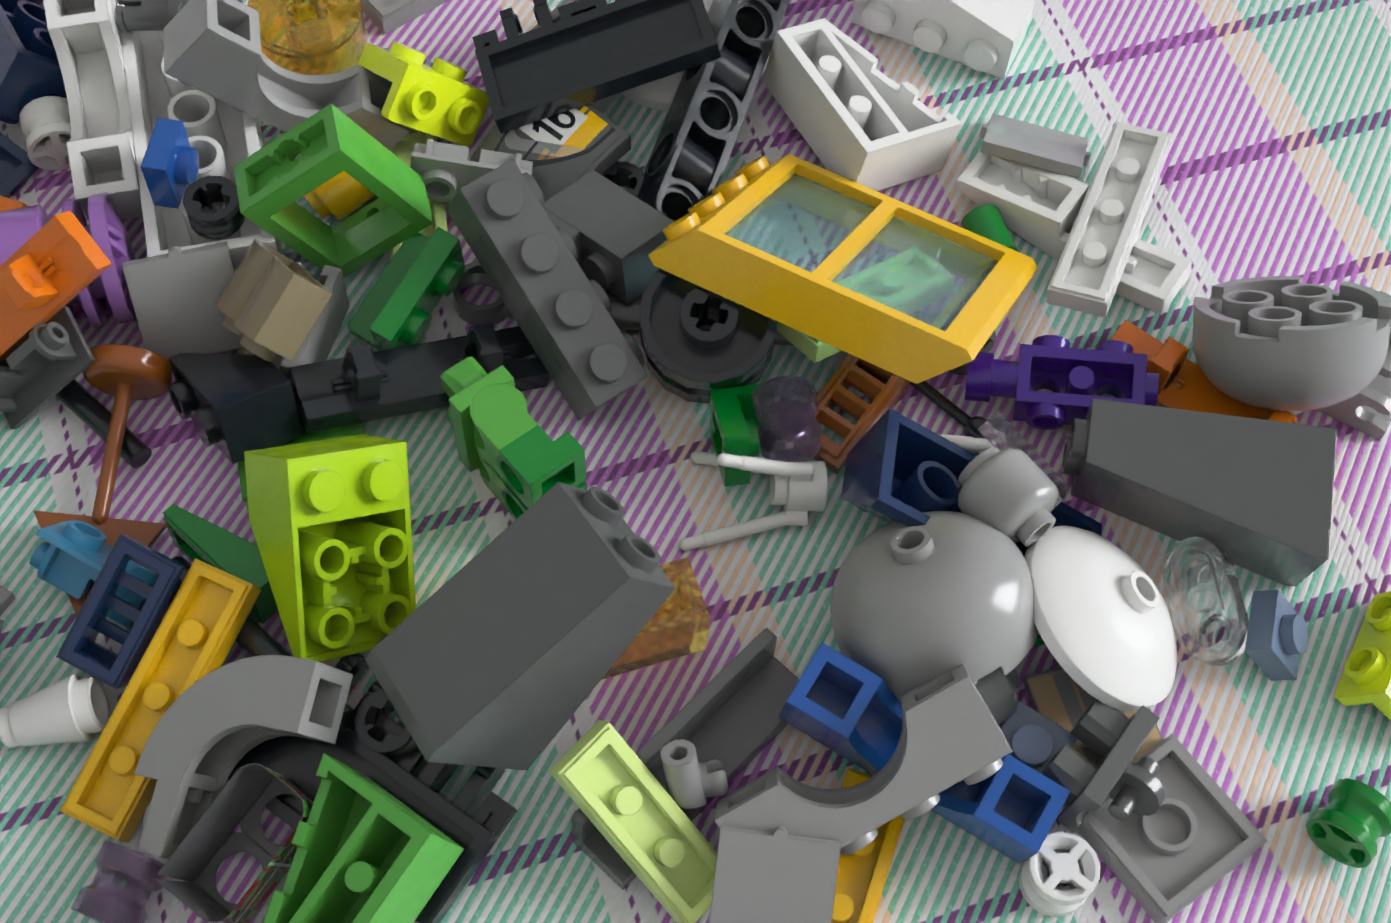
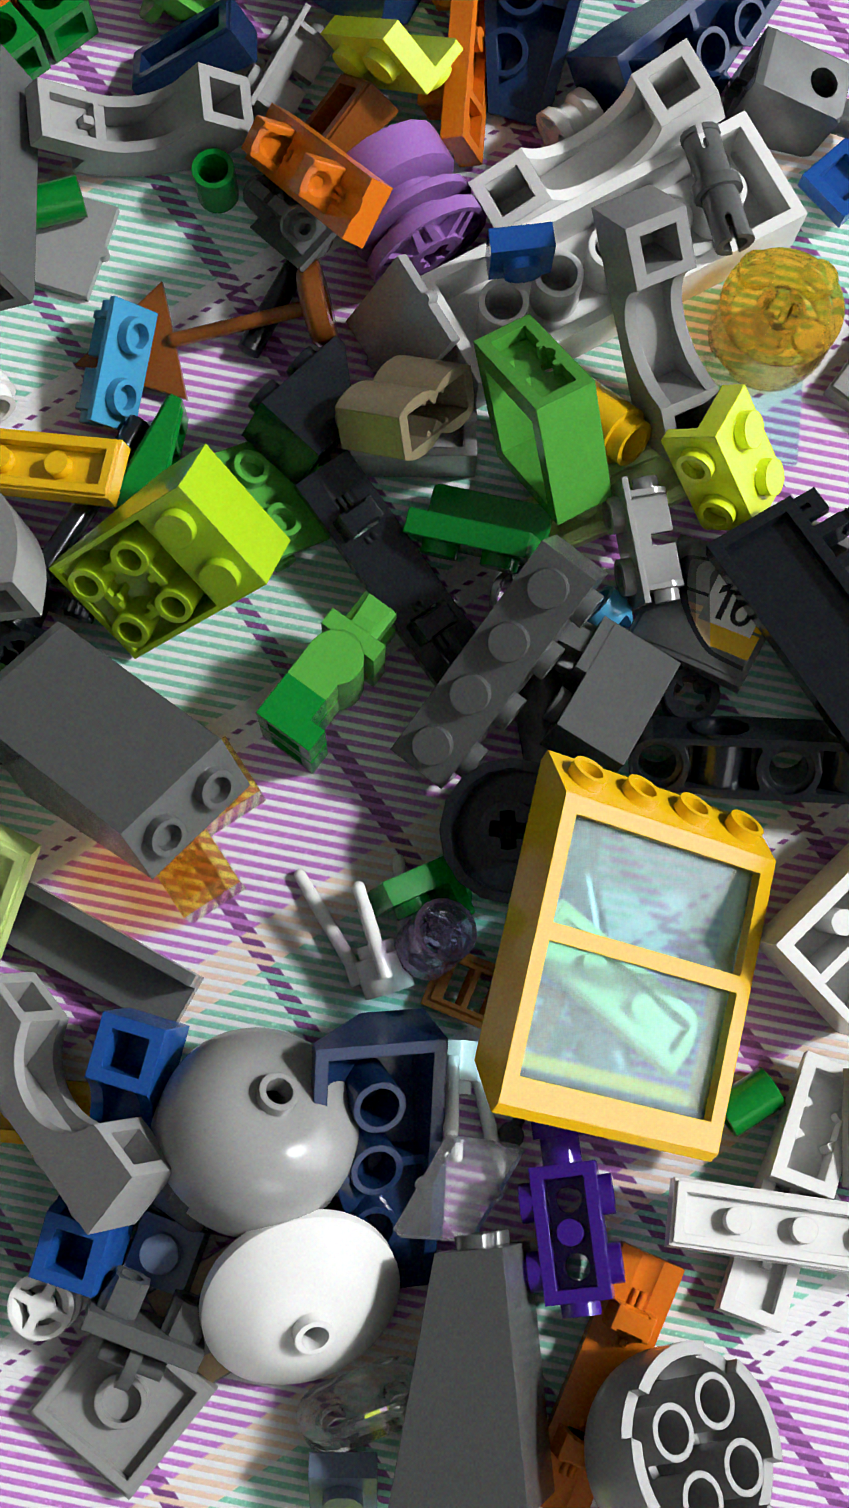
camera: 75 degrees right, 20 degrees up
(80, 645) = (33, 389): dark blue slope -> none
(204, 193) = (484, 292): black bush -> none
(689, 780) = (31, 942): light grey arm -> none
(1009, 494) = (375, 1180): light grey head -> none

